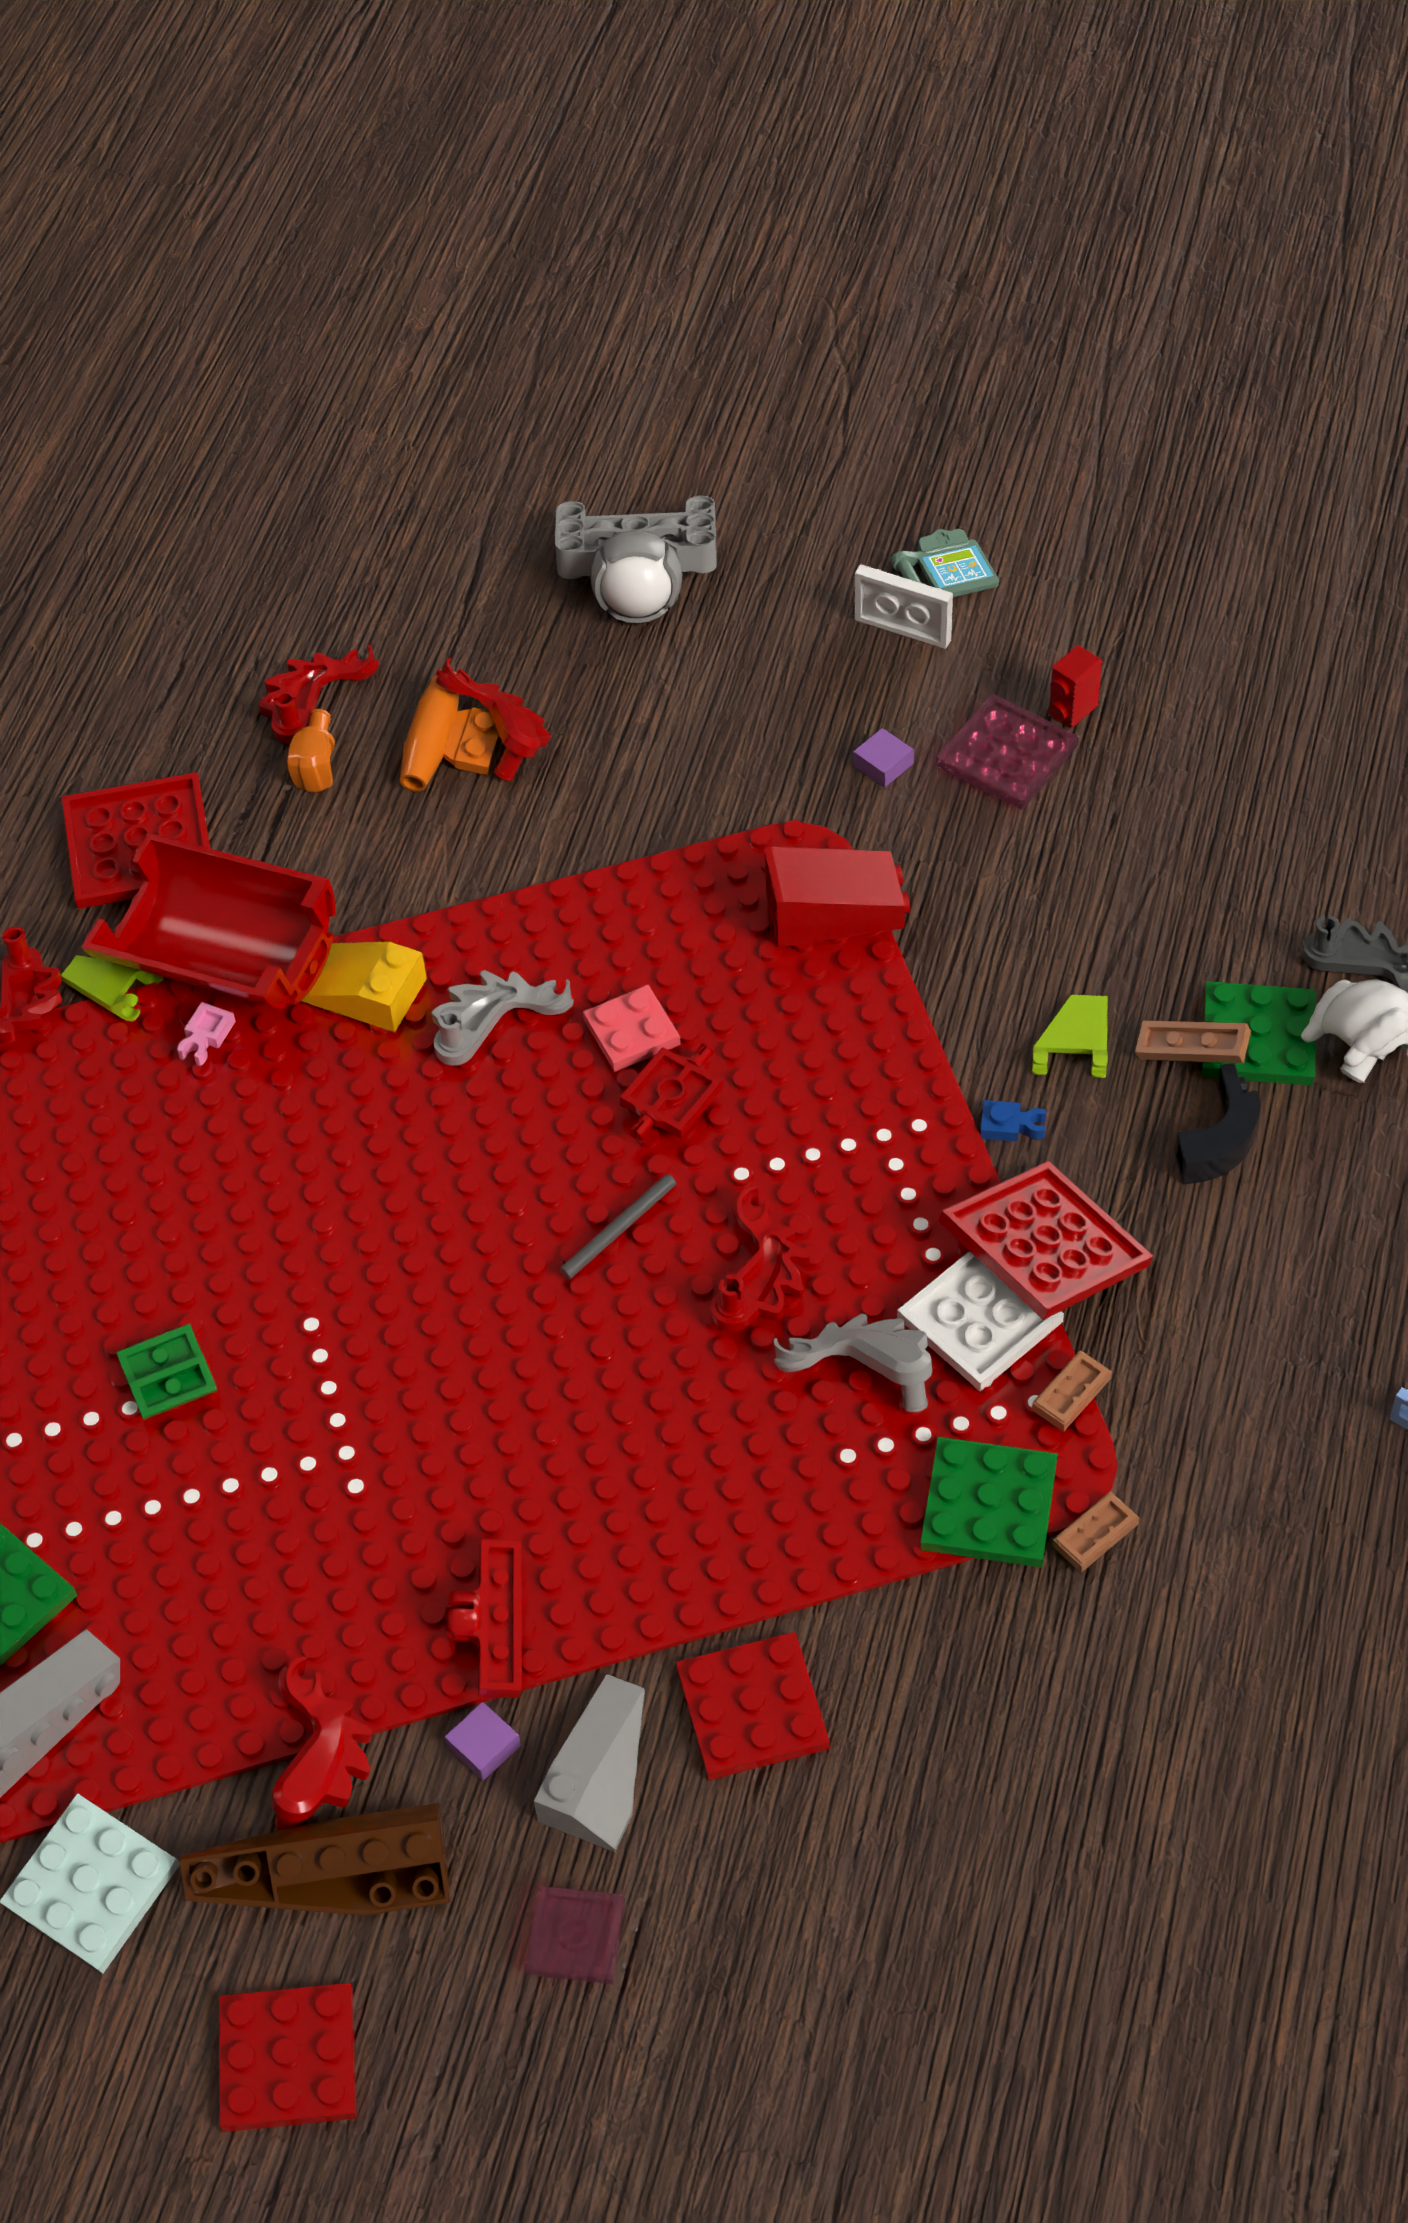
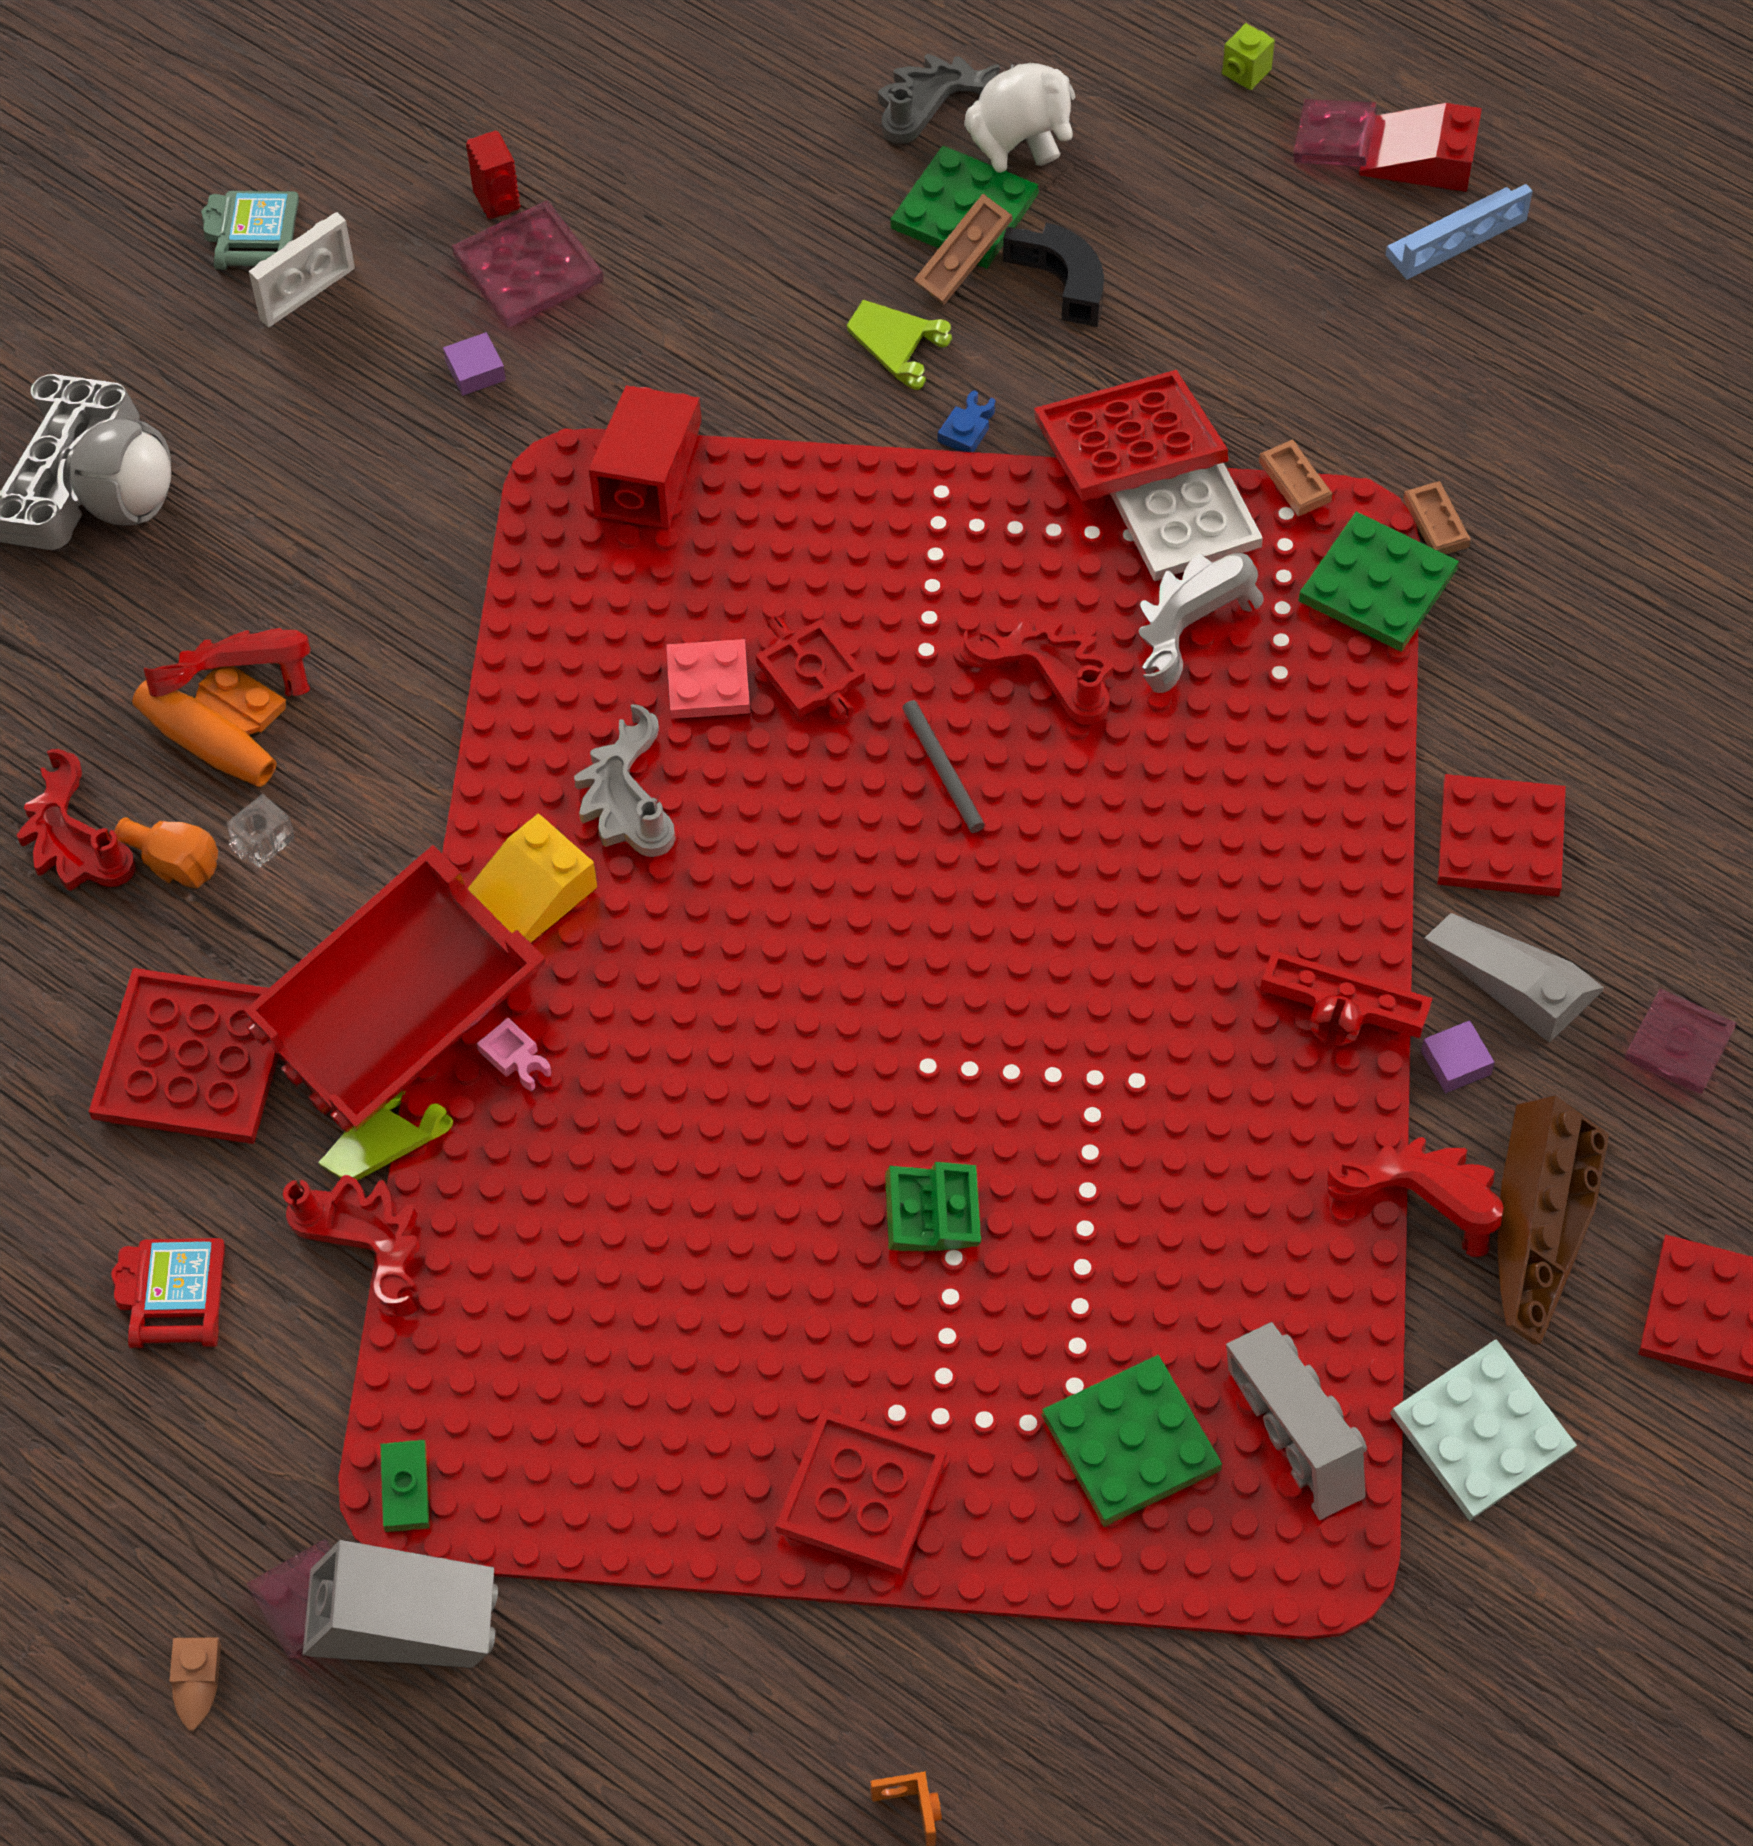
camera: 70 degrees left, 5 degrees up
(355, 799) = (256, 817): none -> clear brick

